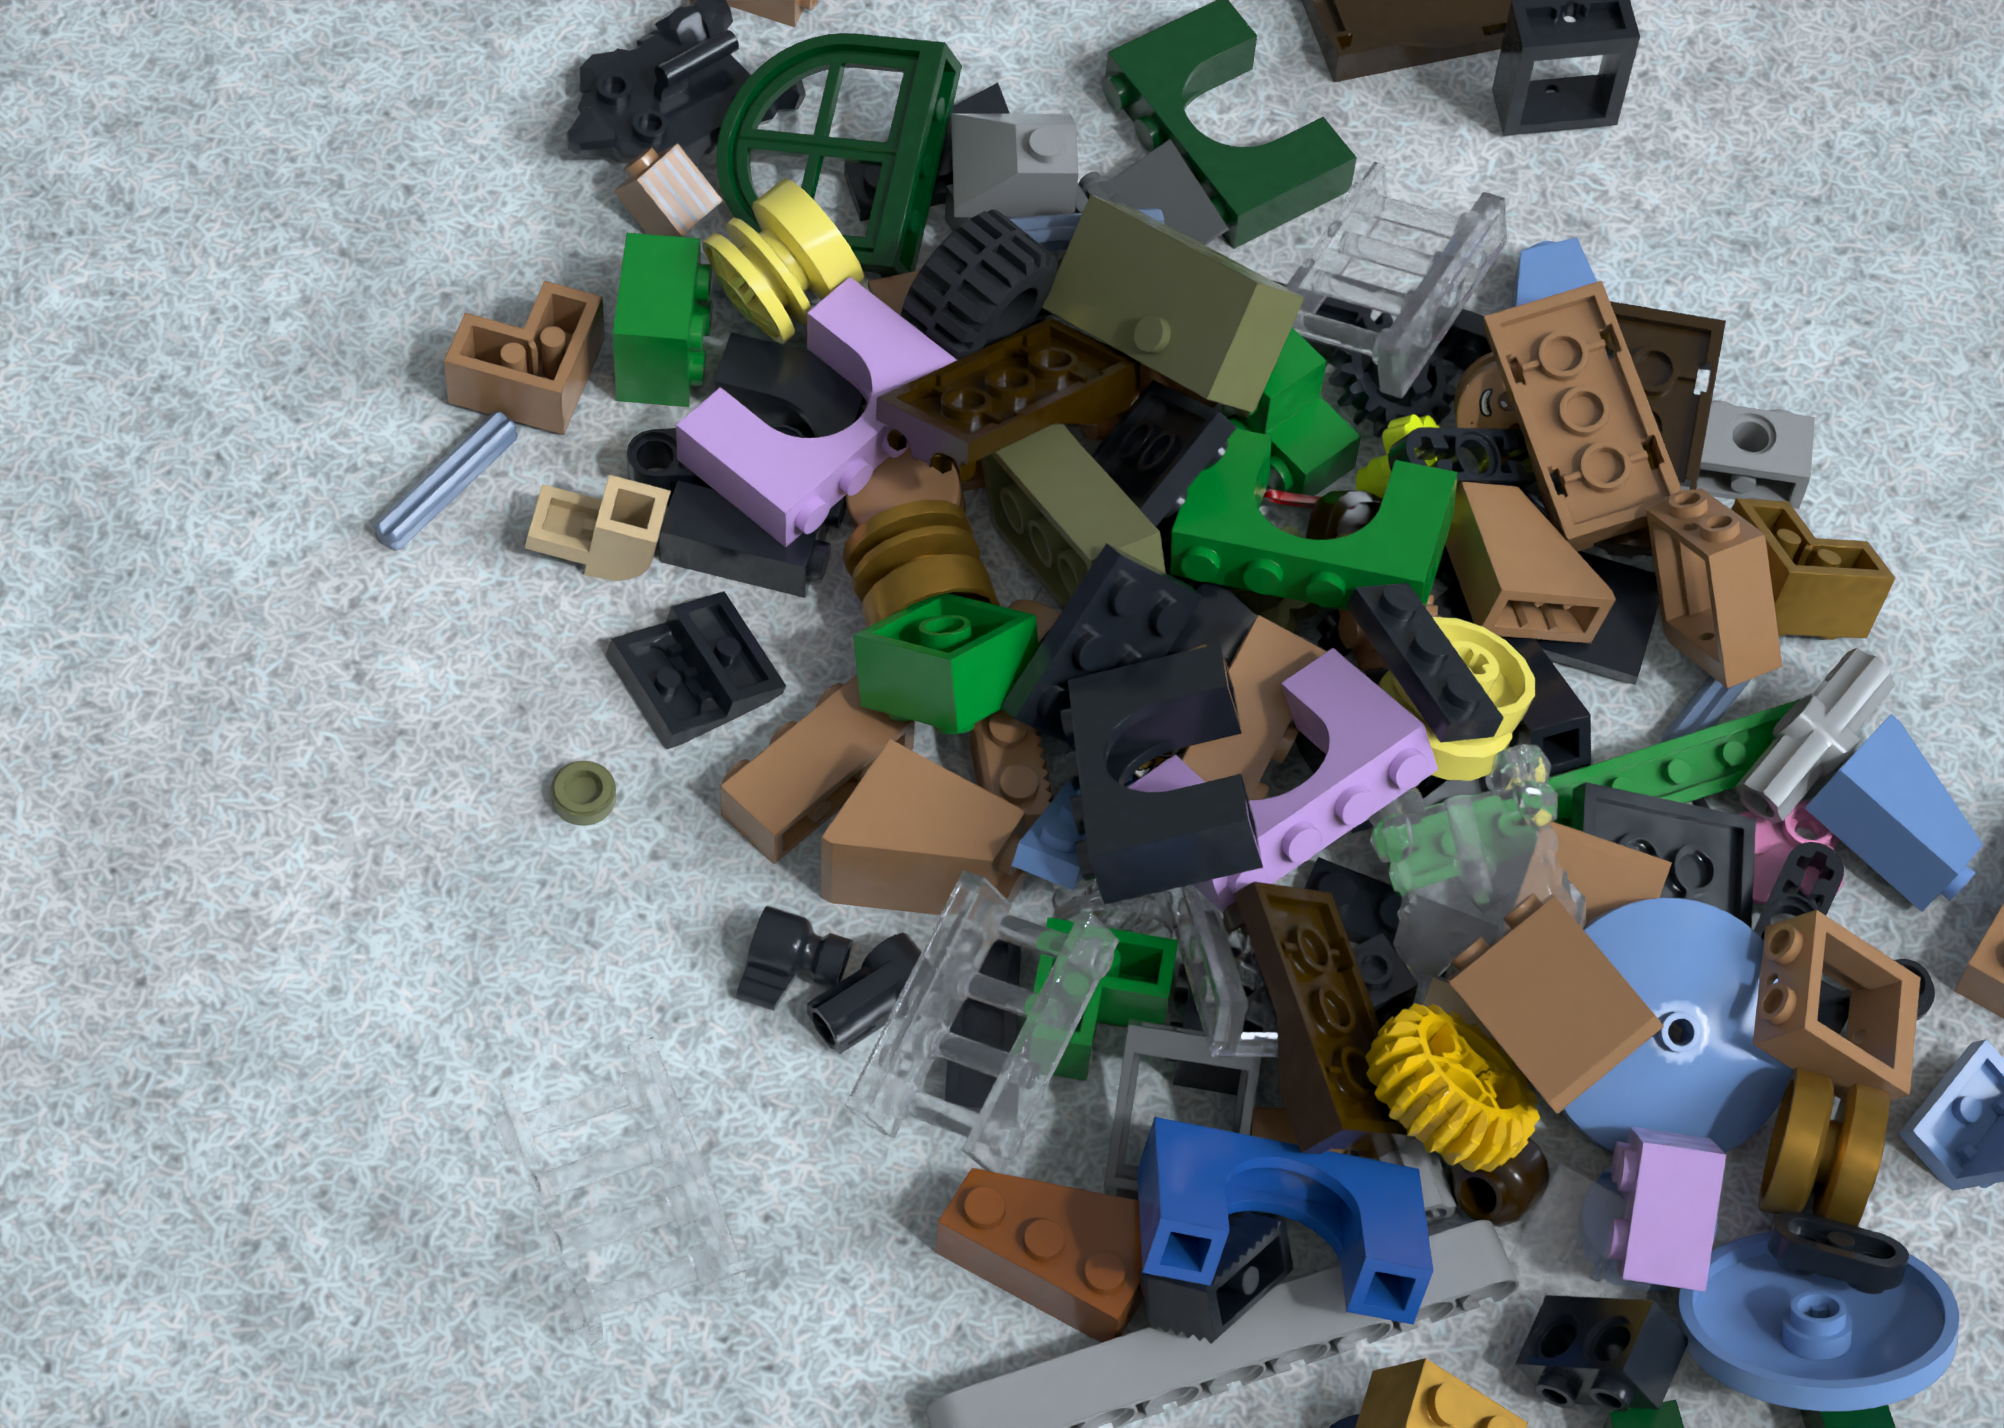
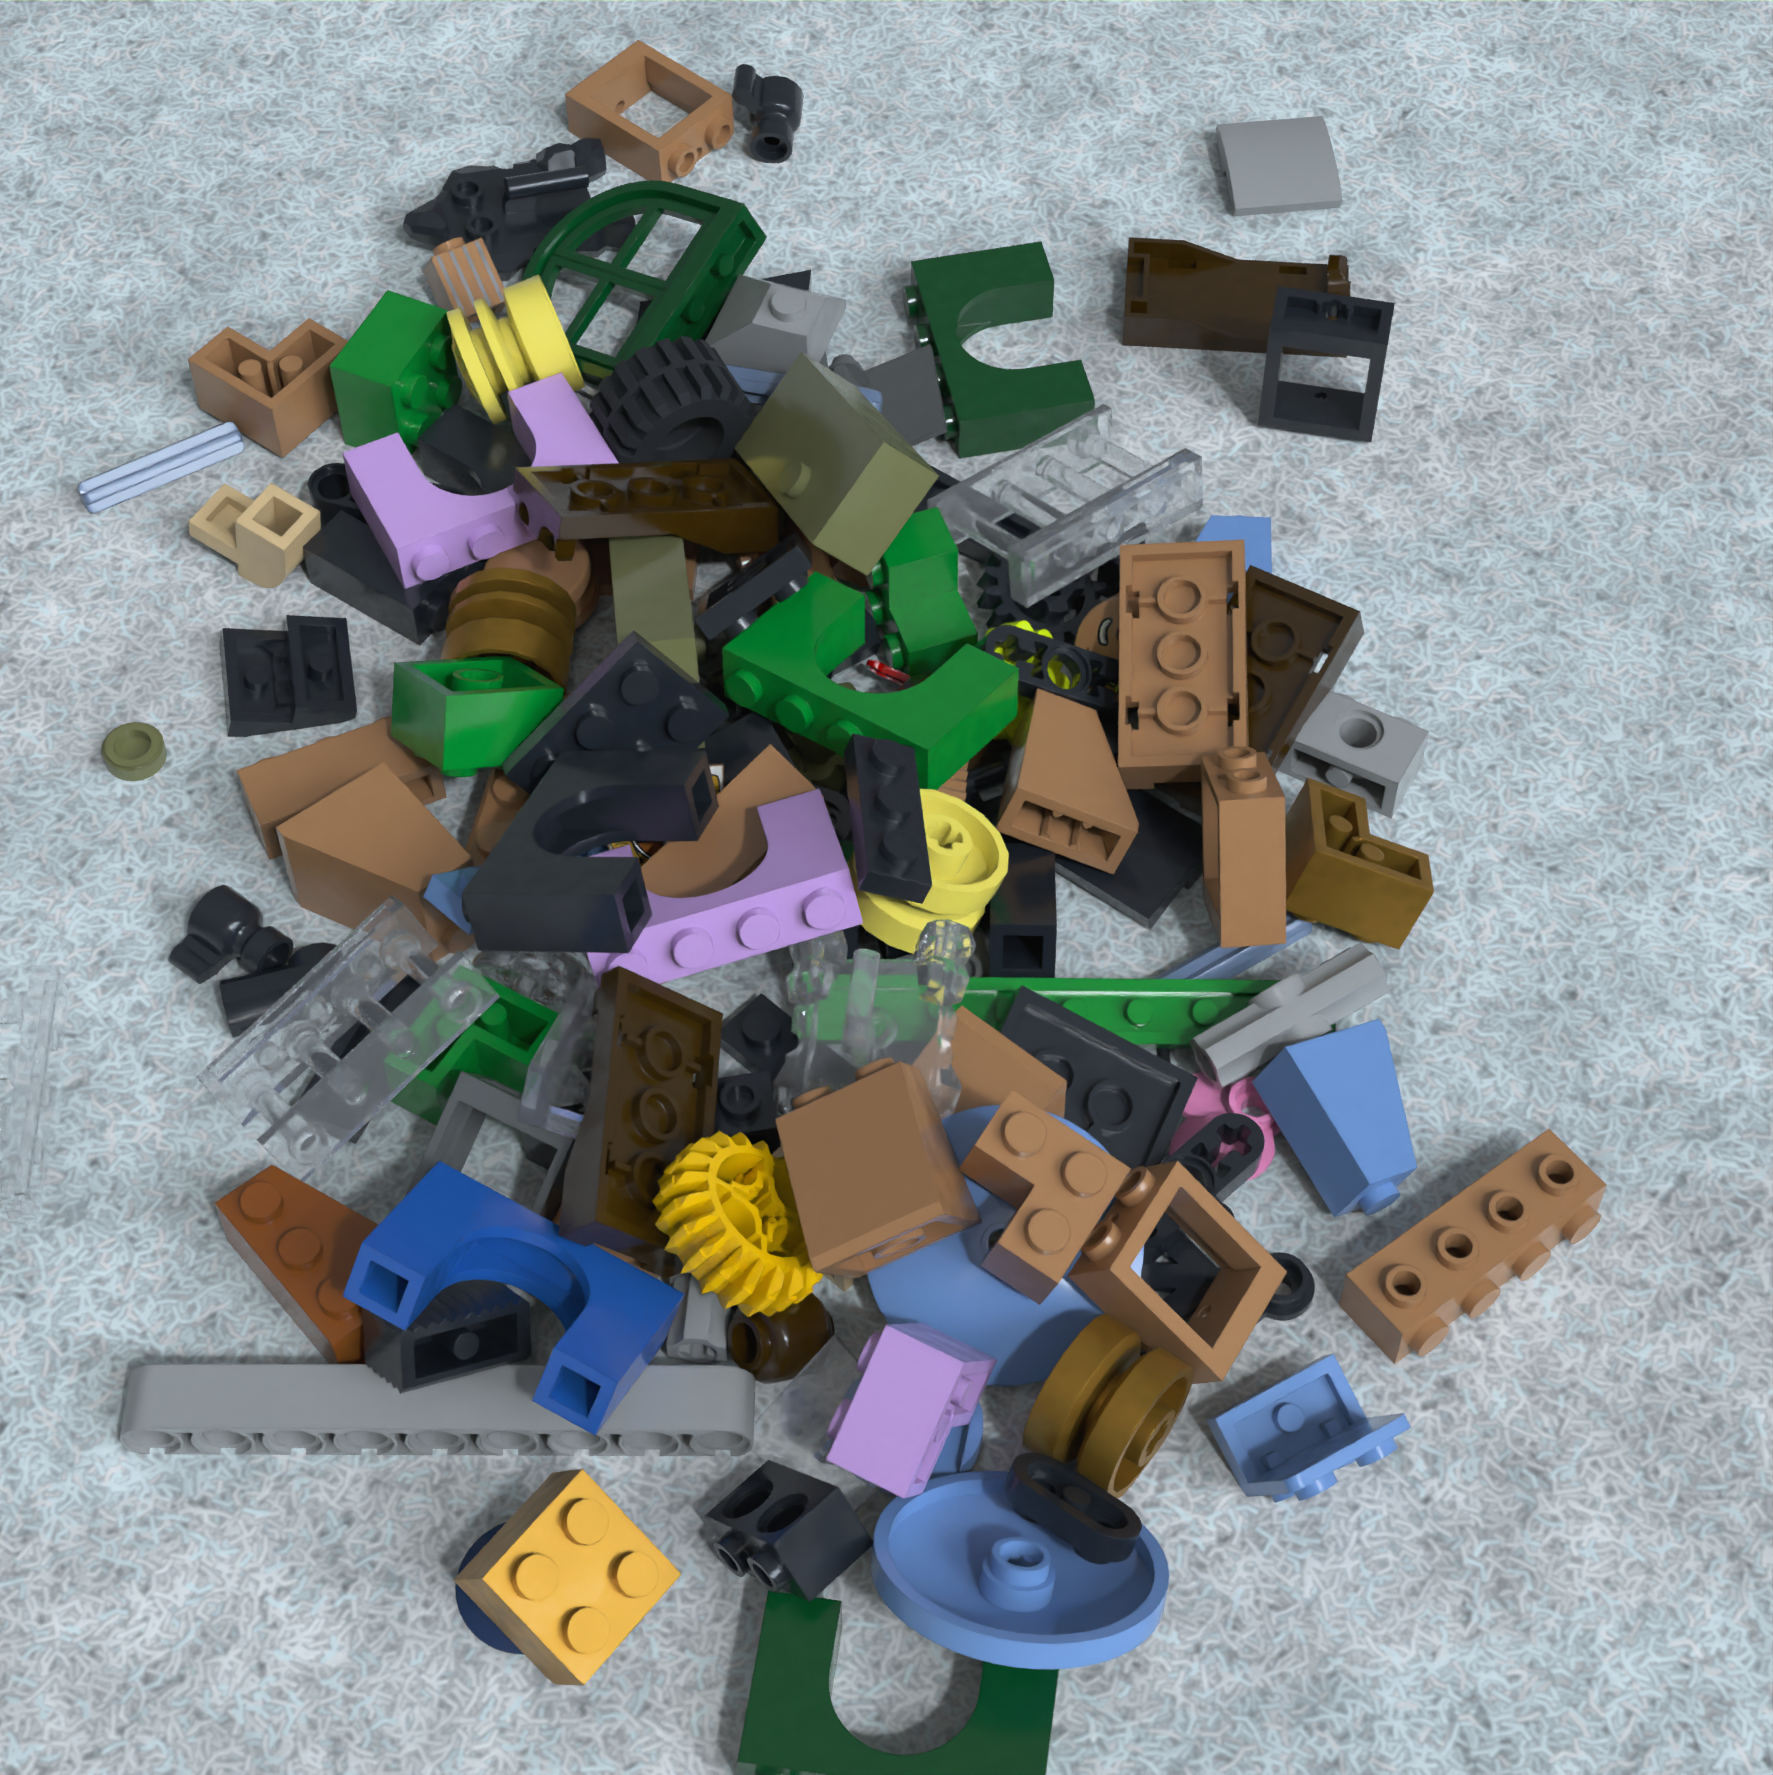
camera: 25 degrees right, 5 degrees down
(1724, 971) = (1053, 1182): none -> medium nougat brick

